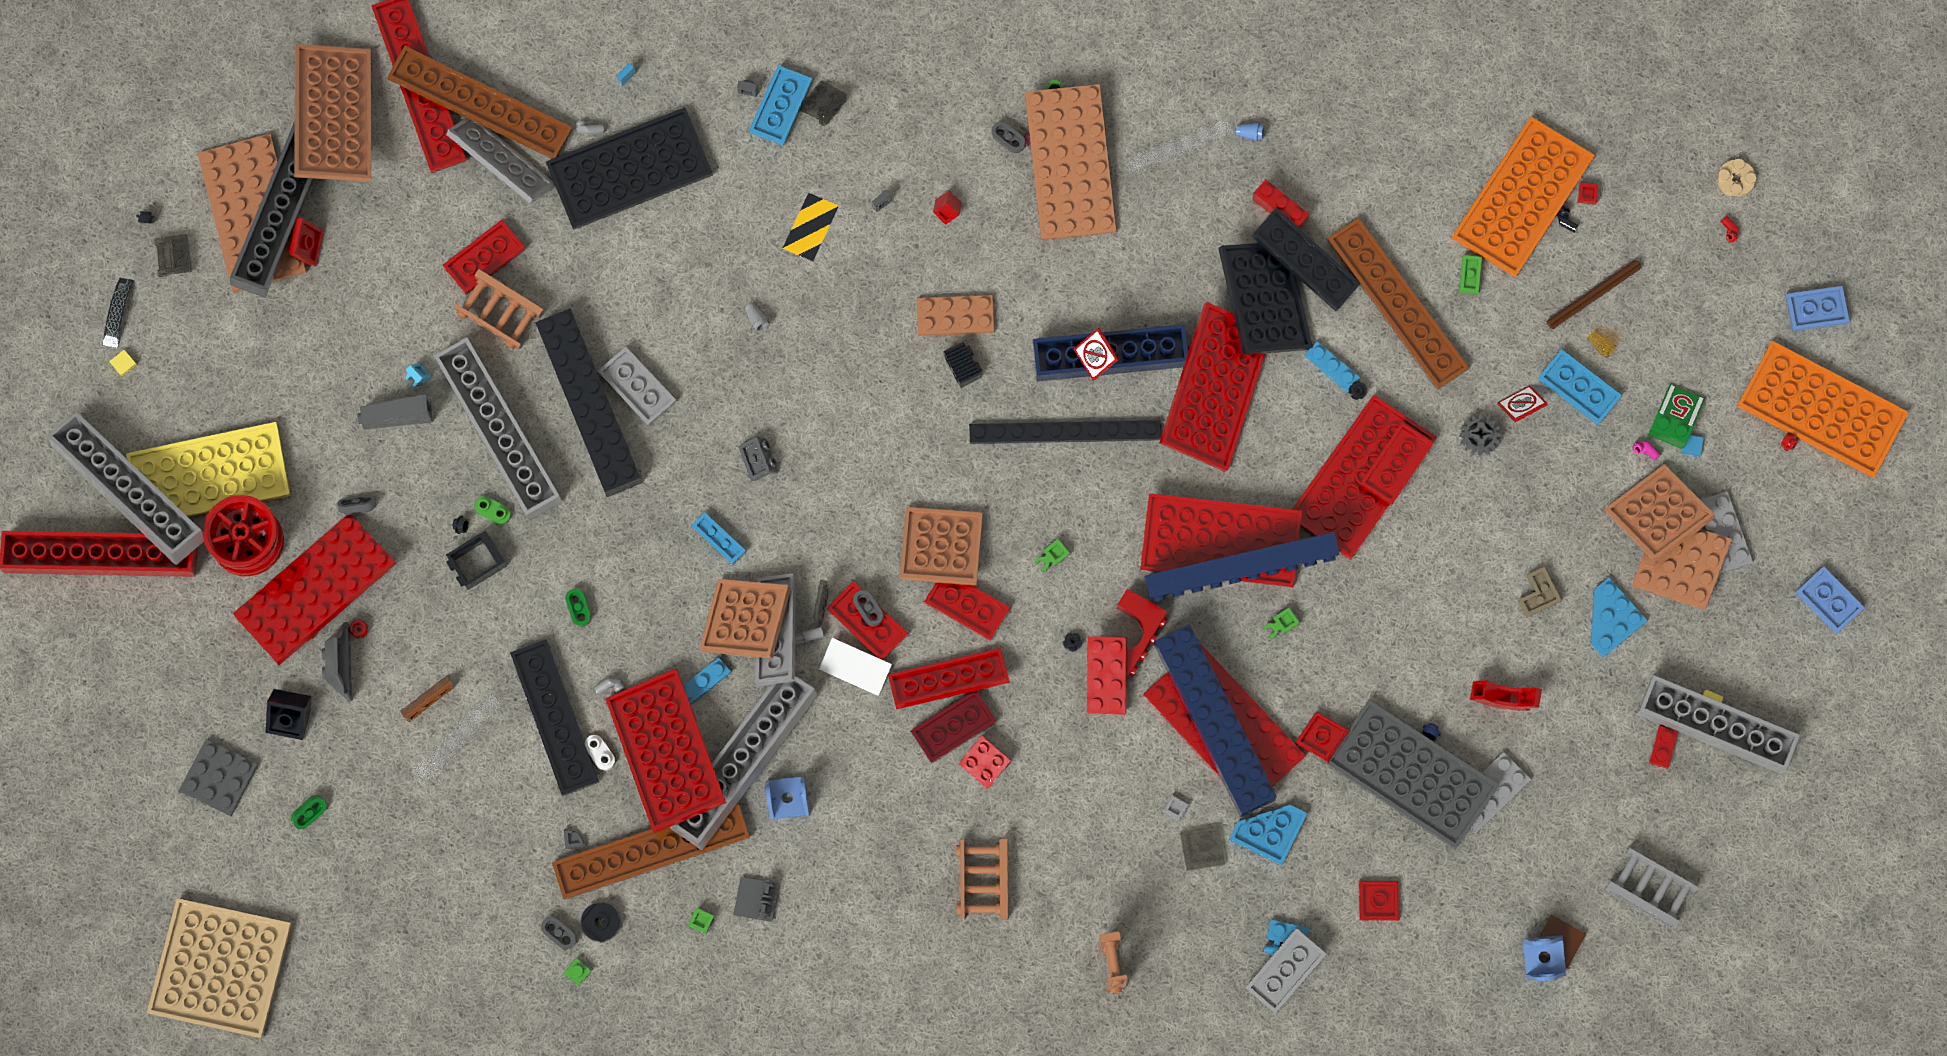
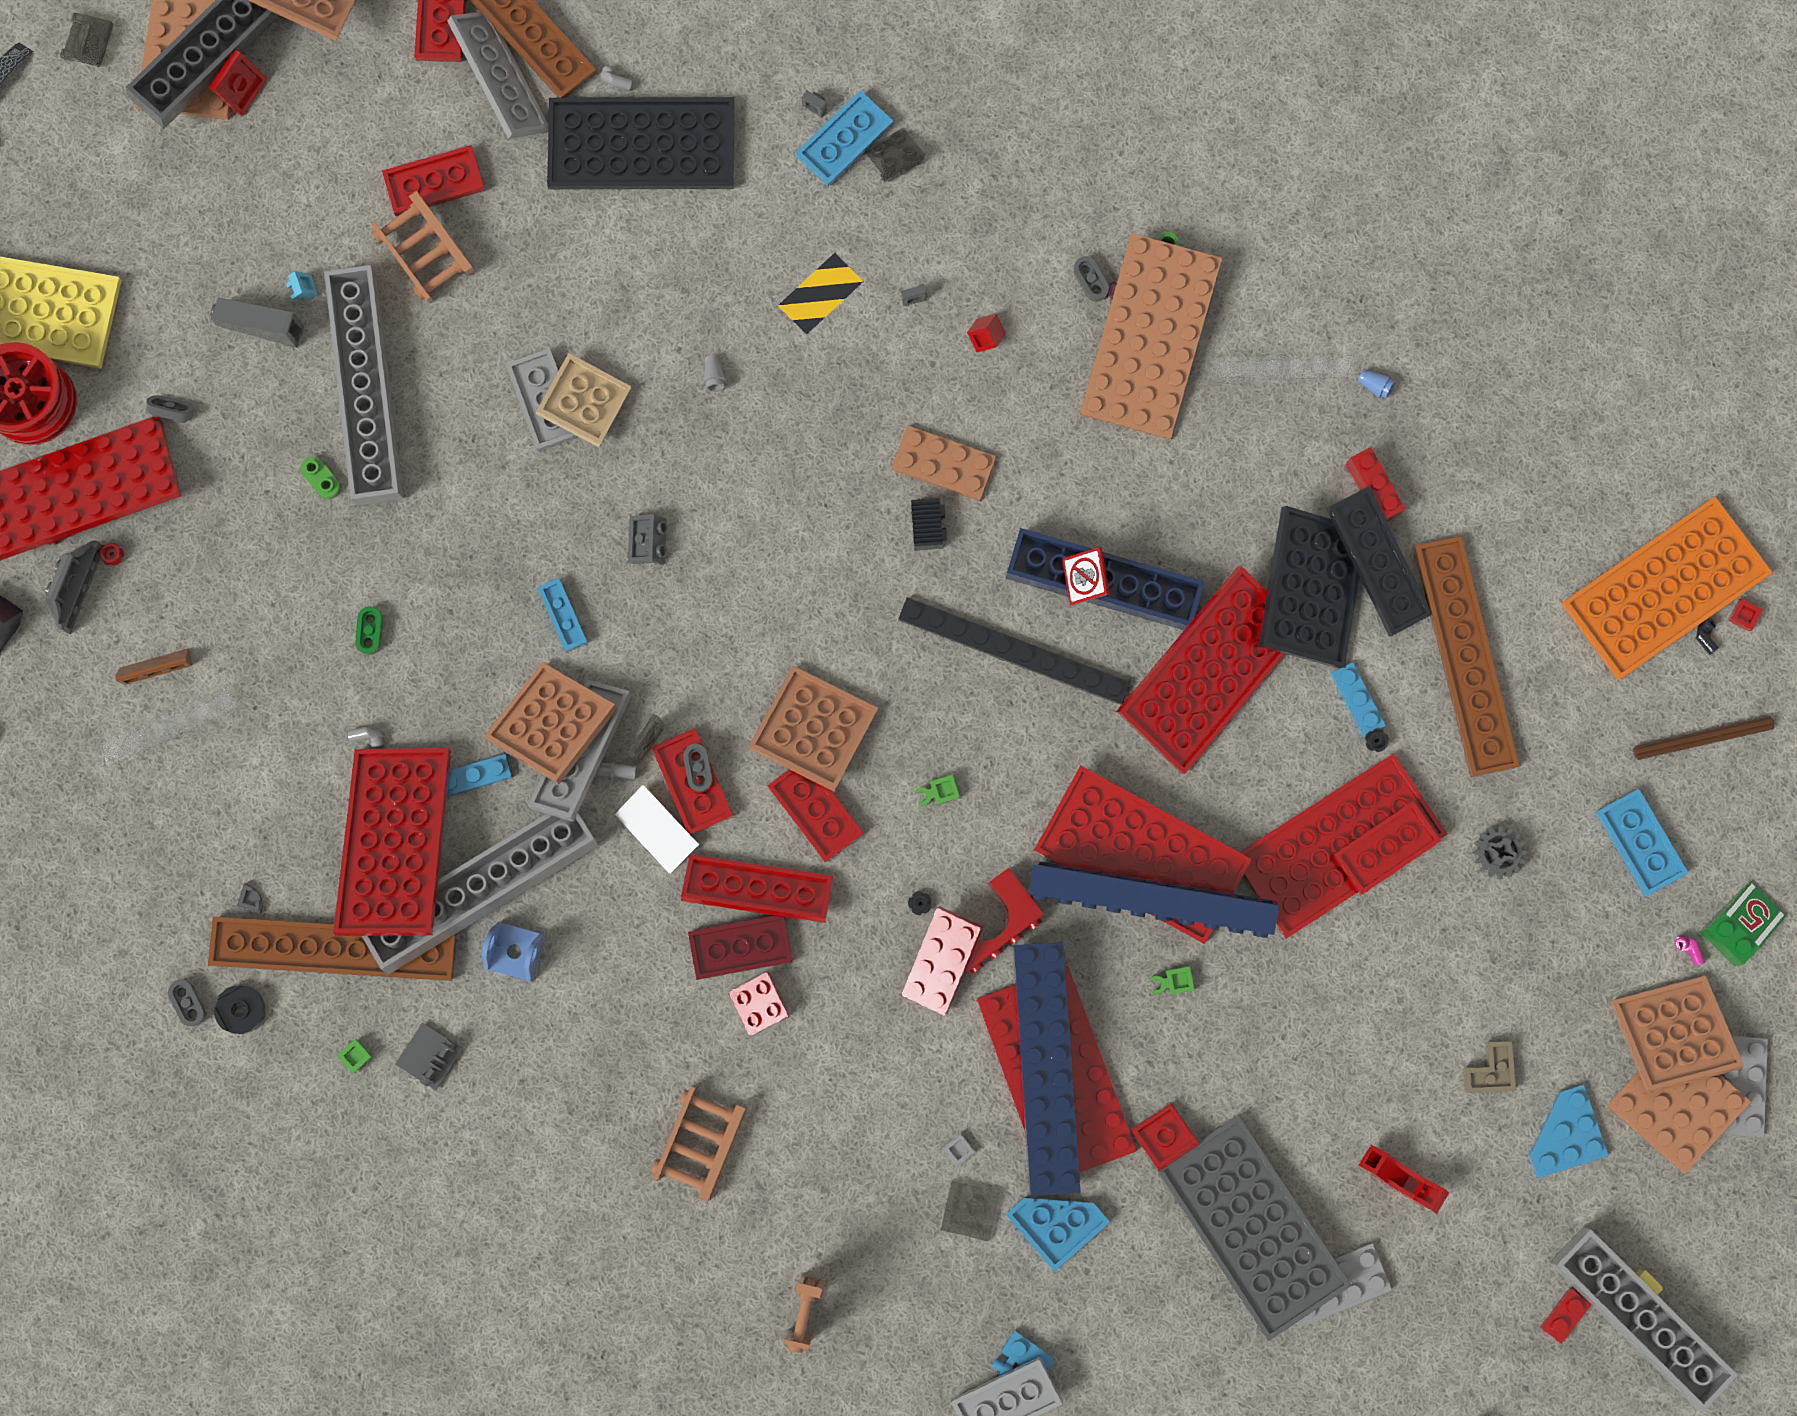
camera: 20 degrees right, 5 degrees up
(460, 524) = (276, 480): black plate -> none
(468, 546) = (299, 521): black window -> none
(554, 717) = (288, 748): black plate -> none
(577, 972) = (190, 1056): bright green plate -> none
(588, 402) = (480, 396): black brick -> none
(599, 752) = (323, 809): white plate -> none
(626, 74) = (682, 32): dark azure tile -> none
(668, 374) = (583, 400): none -> tan plate
(1378, 901) = (1151, 1360): red tile -> none
(1431, 731) = (1296, 1183): dark blue plate -> none
(1470, 274) = (1566, 656): bright green plate -> none
(1522, 403) = (1565, 835): piece -> none
(1603, 344) = (1689, 801): clear yellow cone -> none
(1693, 446) = (1749, 969): dark azure tile -> none

